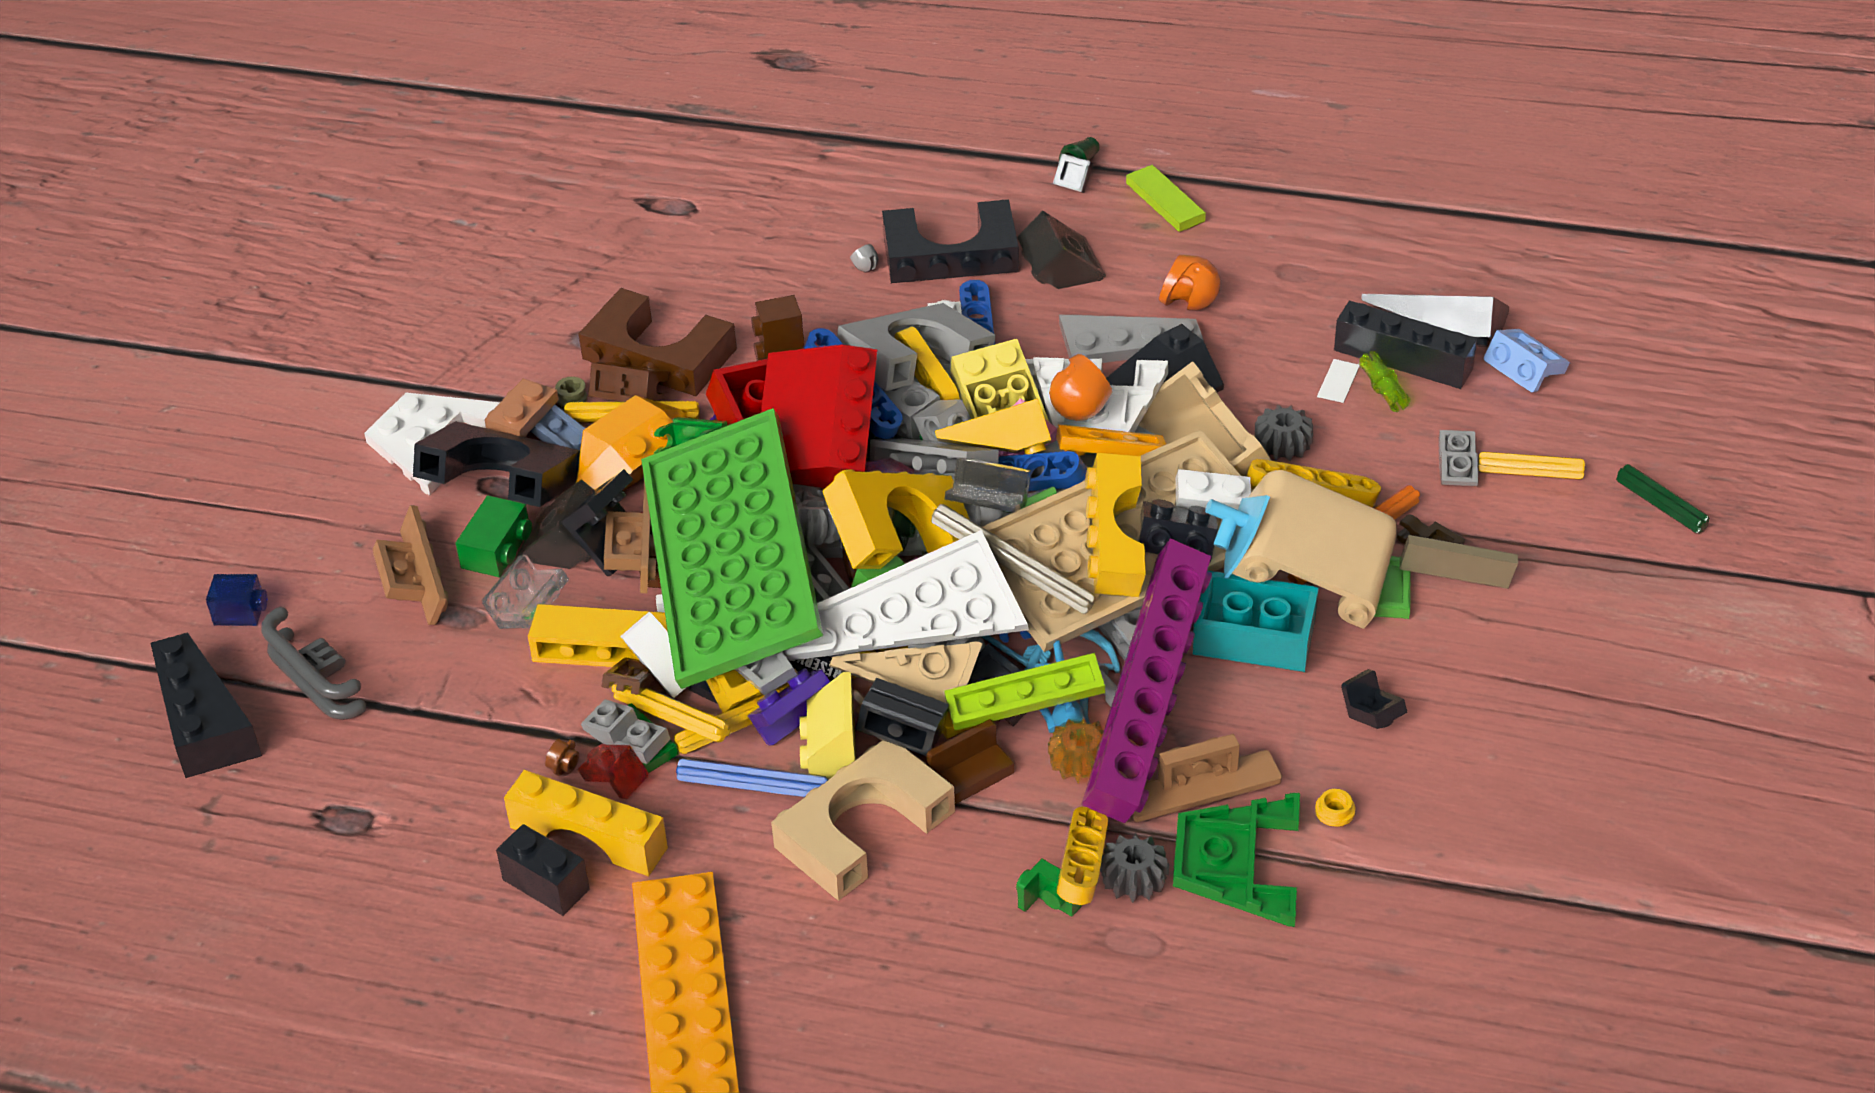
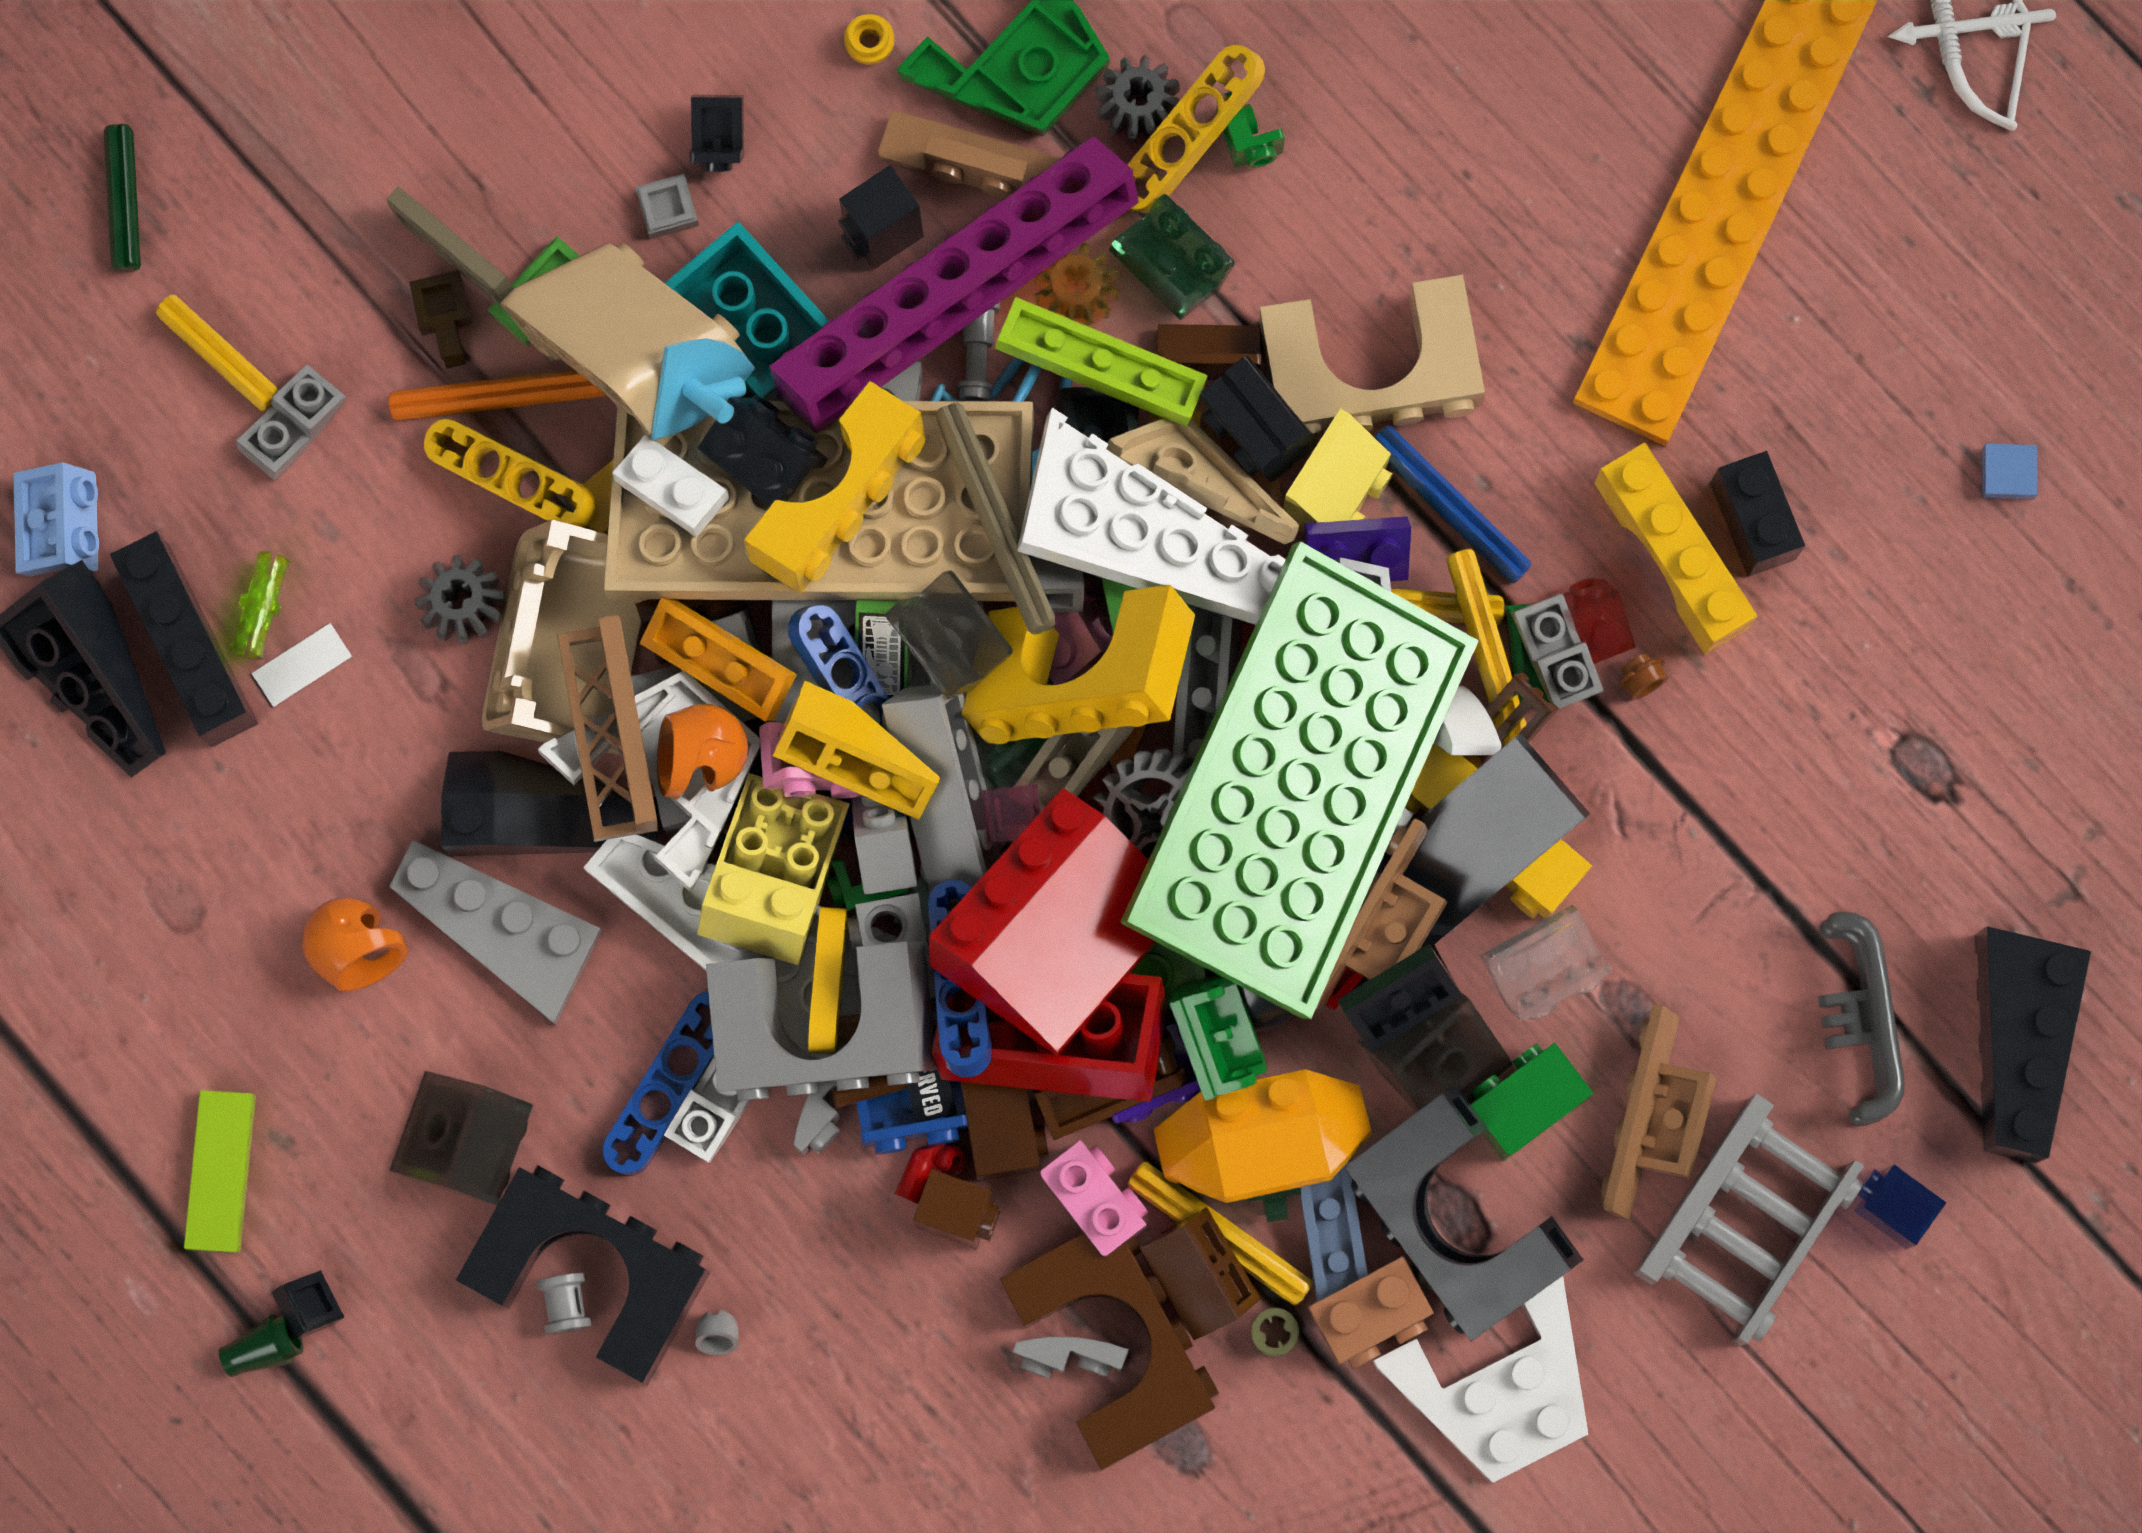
camera: 145 degrees left, 35 degrees up
(355, 564) = (1697, 1217): none -> light grey fence
(380, 1000) = (2009, 471): none -> medium blue tile
(601, 604) = (1490, 831): none -> tile
(673, 329) = (1052, 1353): none -> light grey slope
(693, 374) = (1092, 1198): none -> bright pink bracket
(950, 228) = (564, 1303): none -> light grey bush
(1035, 795) = (1173, 257): none -> clear green bracket
(1141, 383) = (628, 728): none -> medium nougat fence
(1228, 698) = (880, 218): none -> black brick
(1364, 657) = (667, 206): none -> light grey tile

